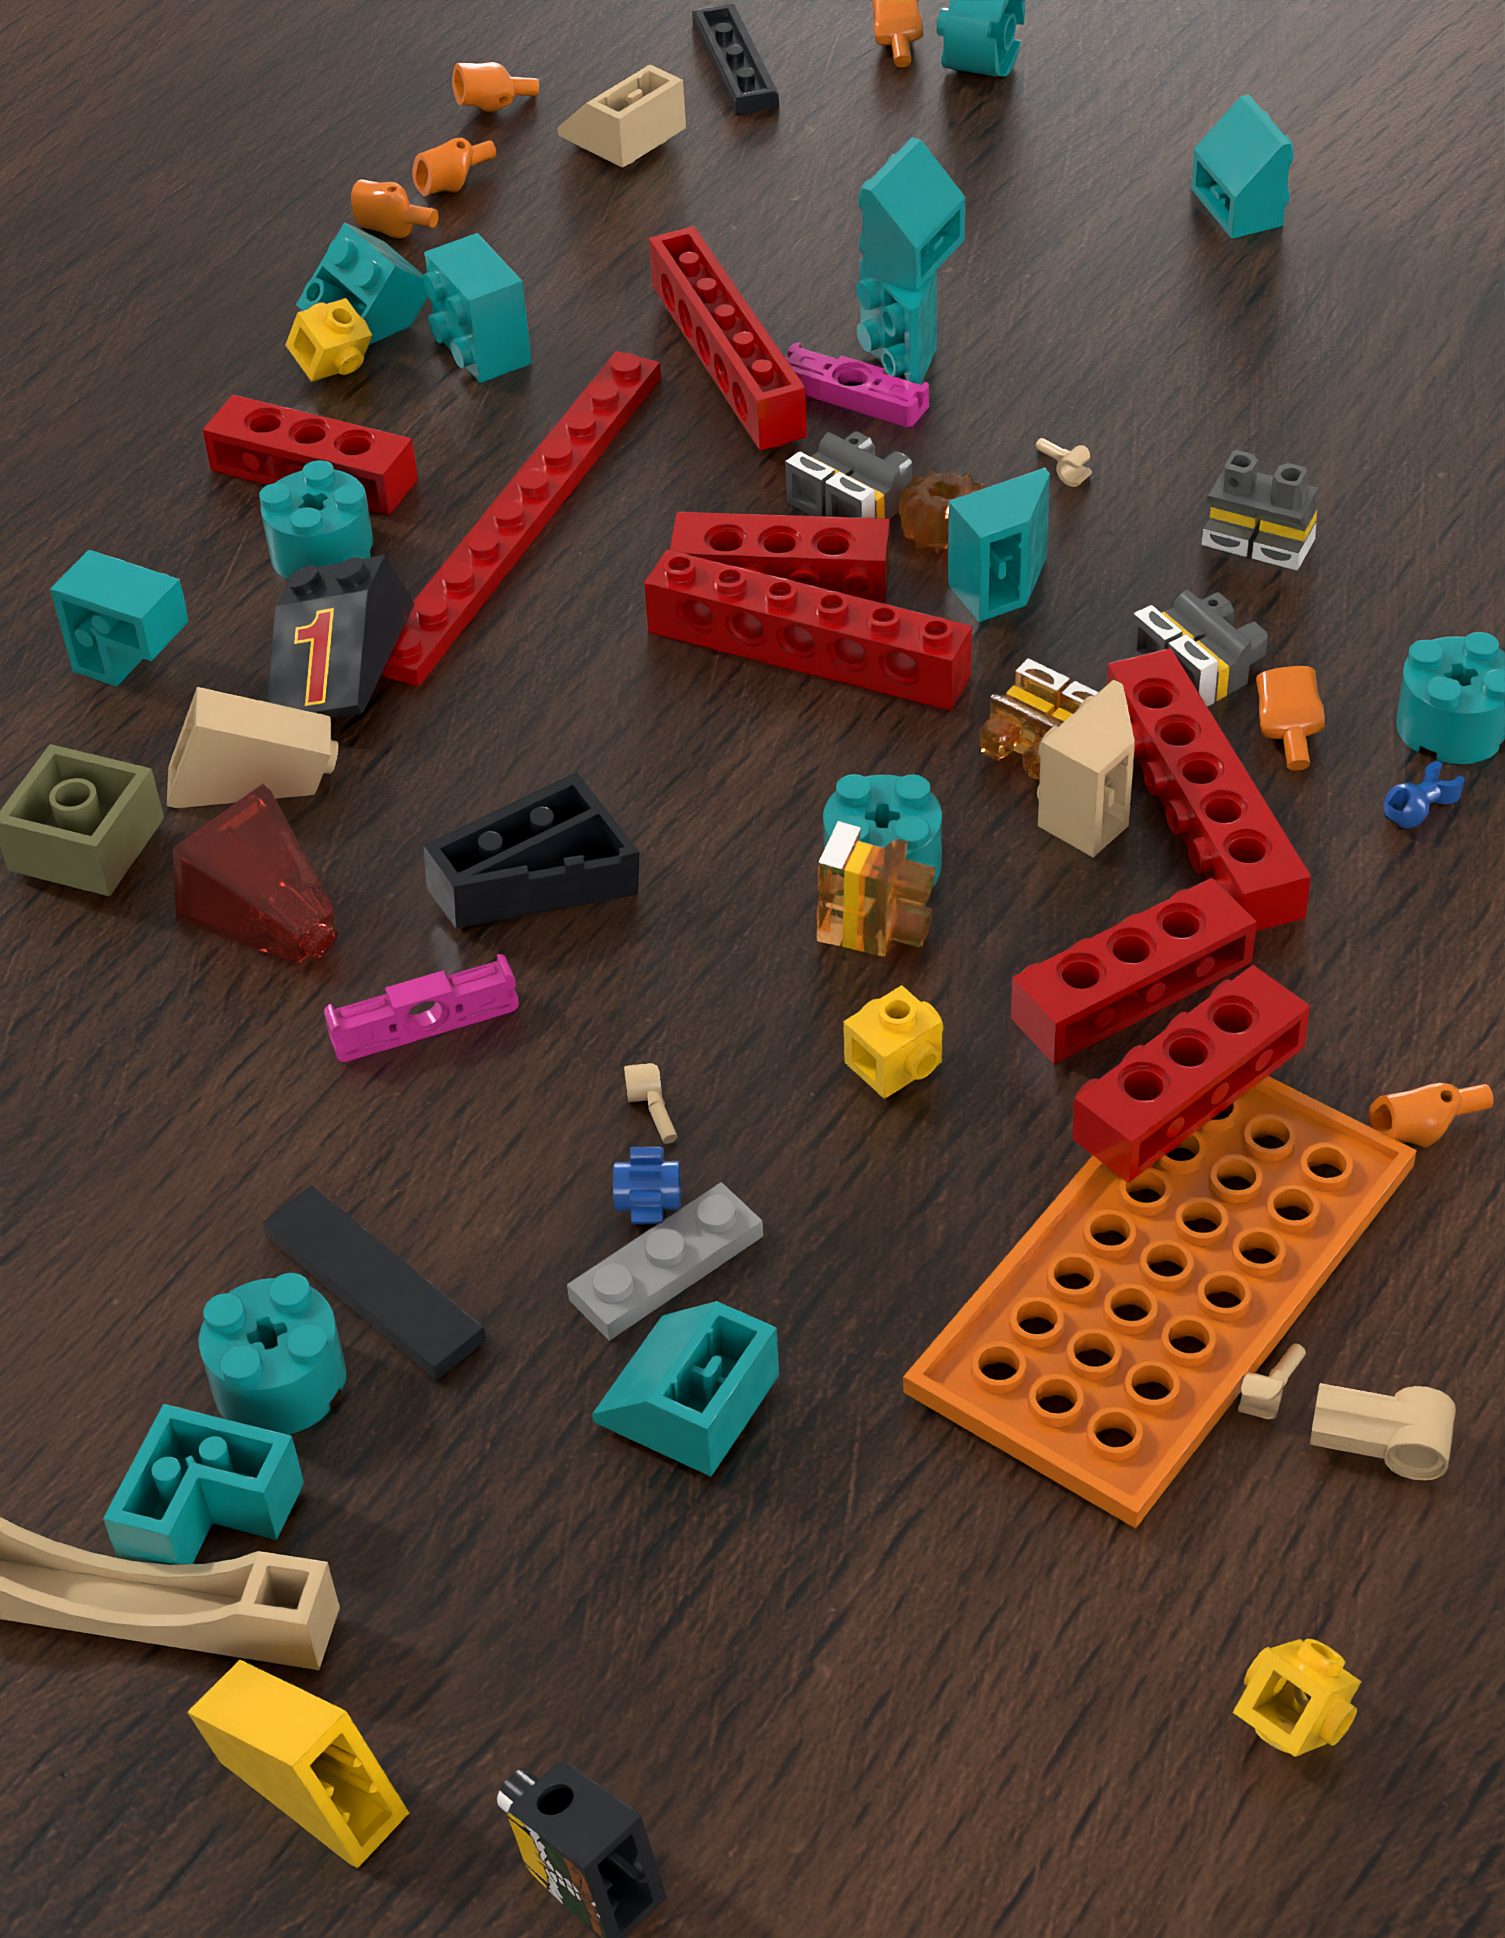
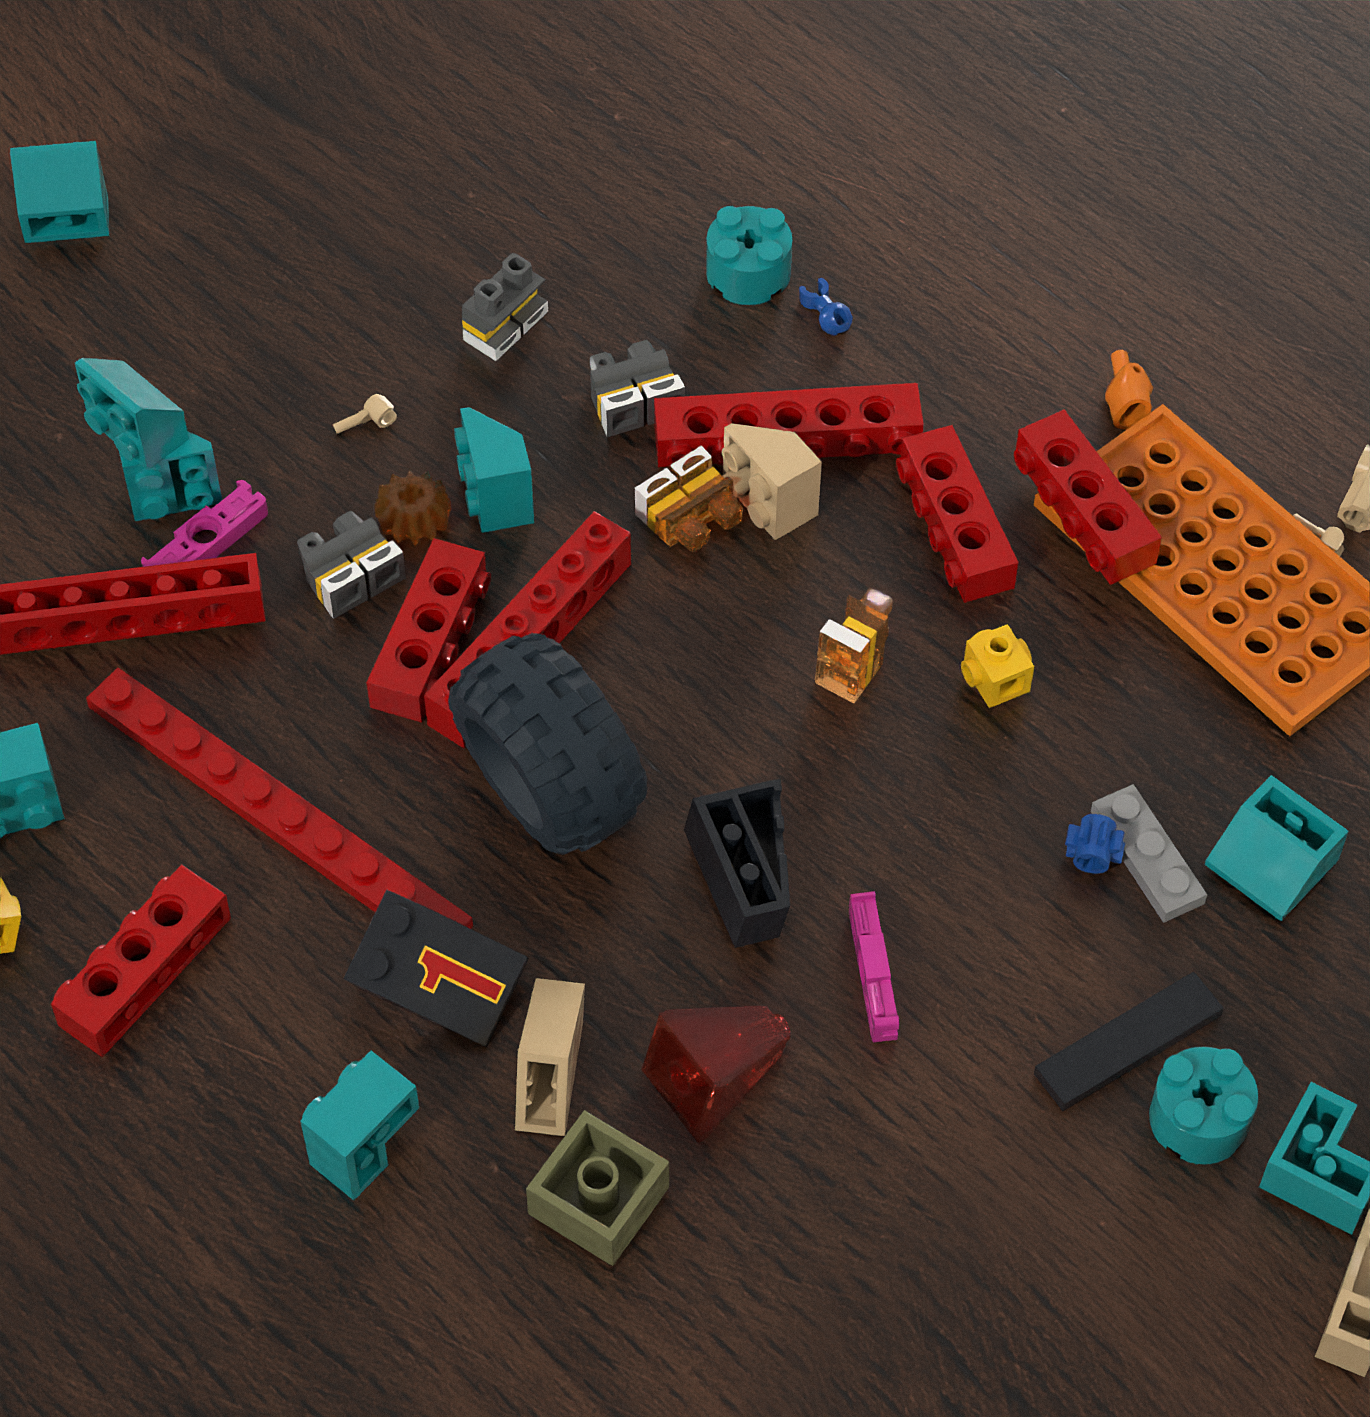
camera: 80 degrees left, 10 degrees up
(315, 518) = (257, 962): teal brick -> none
(596, 624) = (548, 743): none -> black wheel
(645, 1085) = (984, 832): tan hand -> none
(889, 811) = (784, 627): teal brick -> none
(1290, 710) = (724, 353): orange piece -> none

